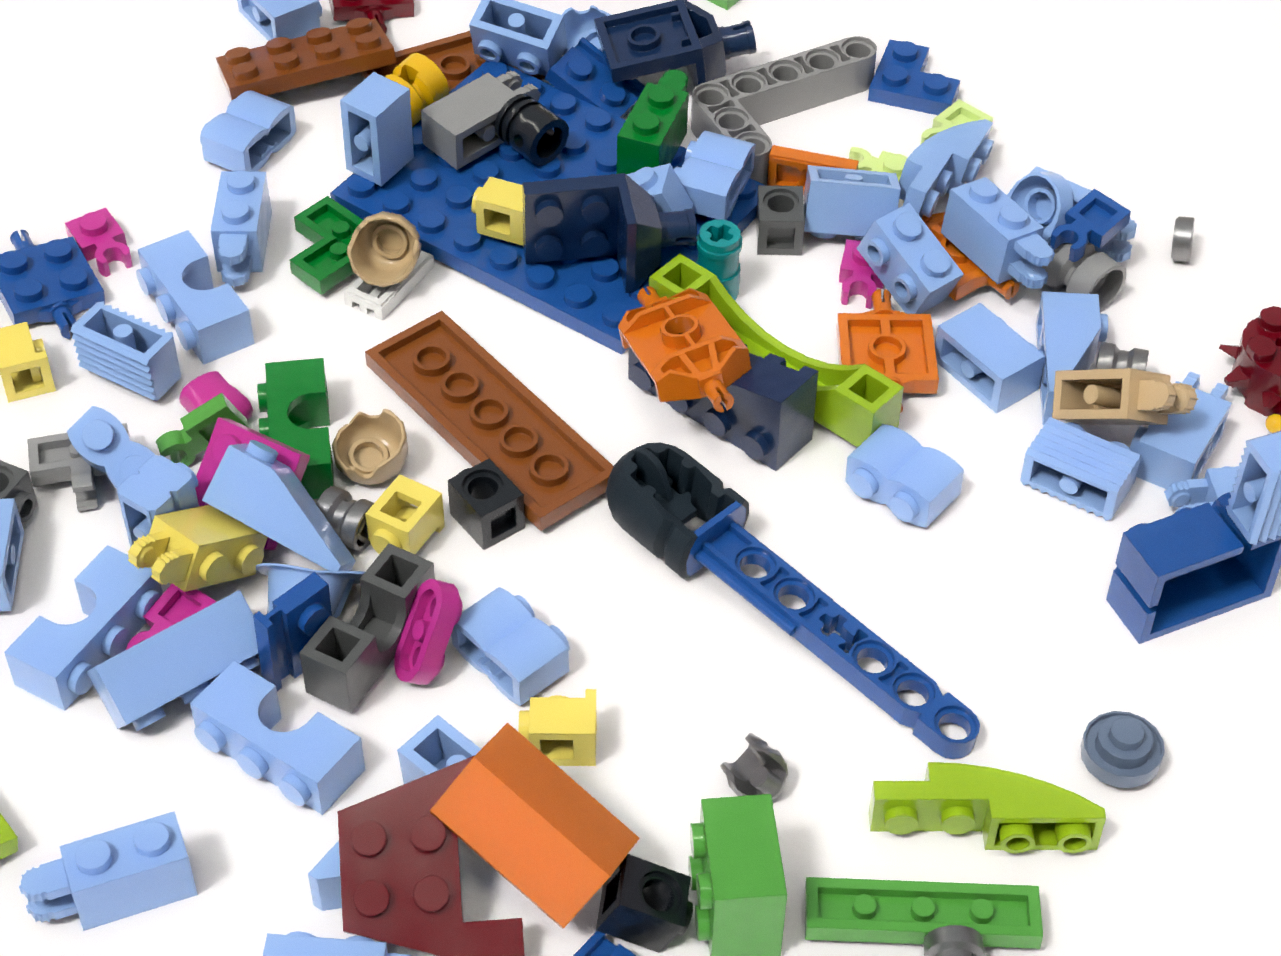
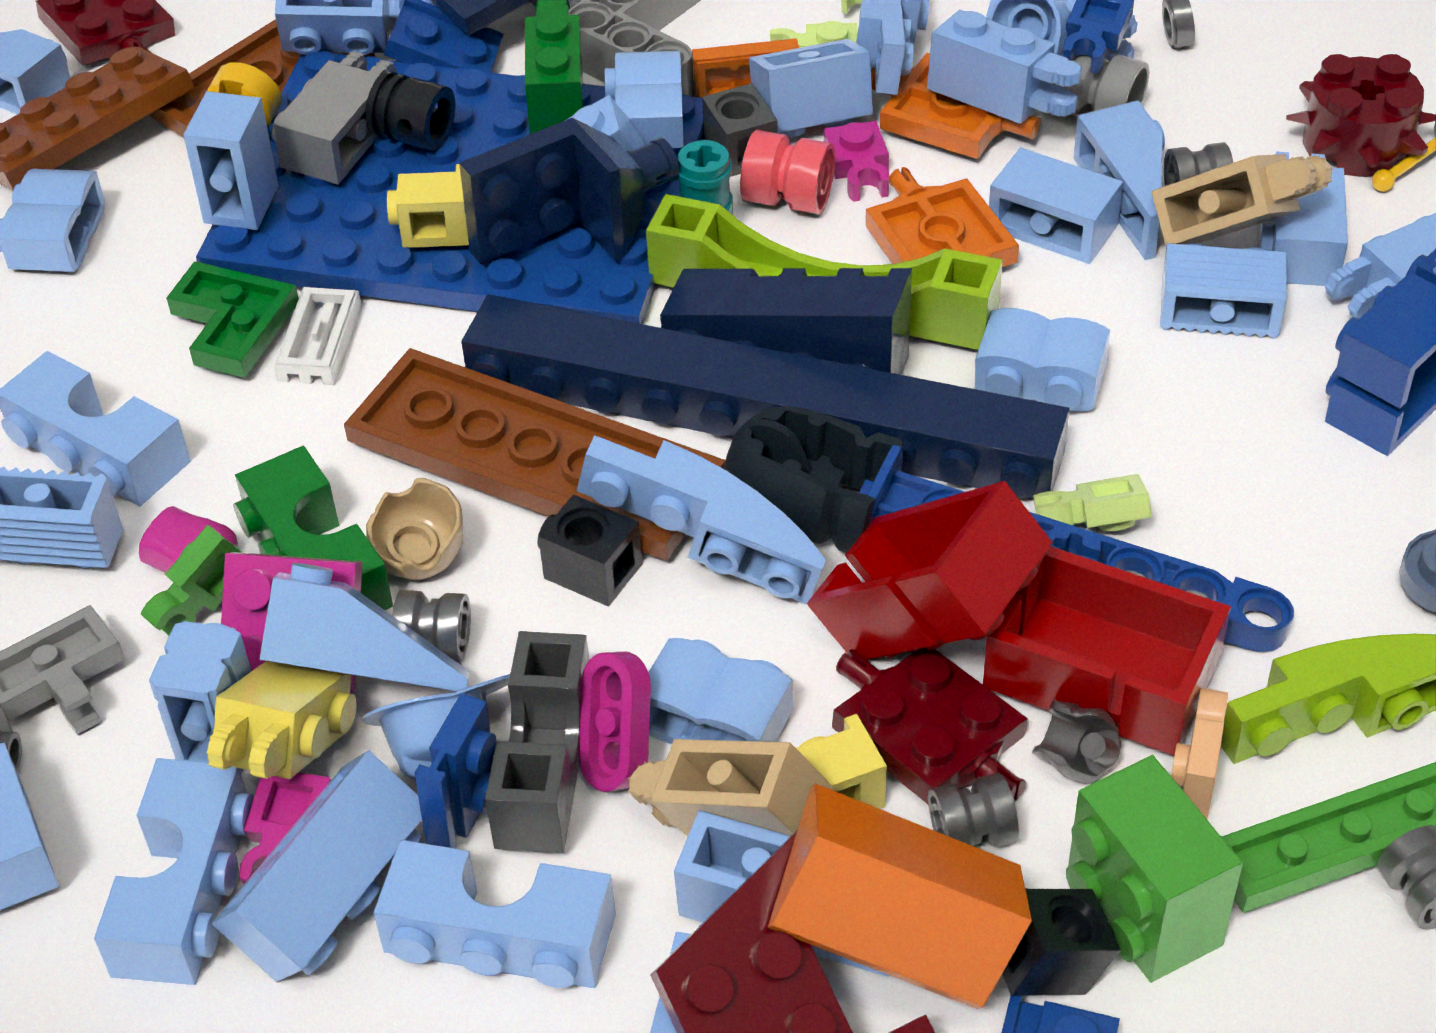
camera: 20 degrees left, 0 degrees up
(107, 446) = (97, 638): light blue brick -> none
(241, 225) = (105, 326): light blue hinge -> none
(384, 249) = (308, 297): tan hair -> none
(401, 524) = (499, 611): light yellow brick -> none
(472, 703) = (732, 779): none -> tan hinge
(587, 515) = (730, 521): none -> light blue slope
(621, 399) = (721, 384): none -> dark blue brick
(640, 793) = (978, 814): none -> flat silver wheel
(659, 719) = (931, 721): none -> dark red plate
(691, 363) = (739, 291): orange plate -> none
(709, 607) = (932, 573): none -> red piece
(796, 266) = (779, 170): none -> coral wheel
(812, 707) = (1110, 645): none -> red piece
(836, 818) = (1197, 763): none -> light nougat plate
(884, 601) = (1104, 503): none -> yellowish green plate
(909, 260) = (910, 119): light blue brick -> none

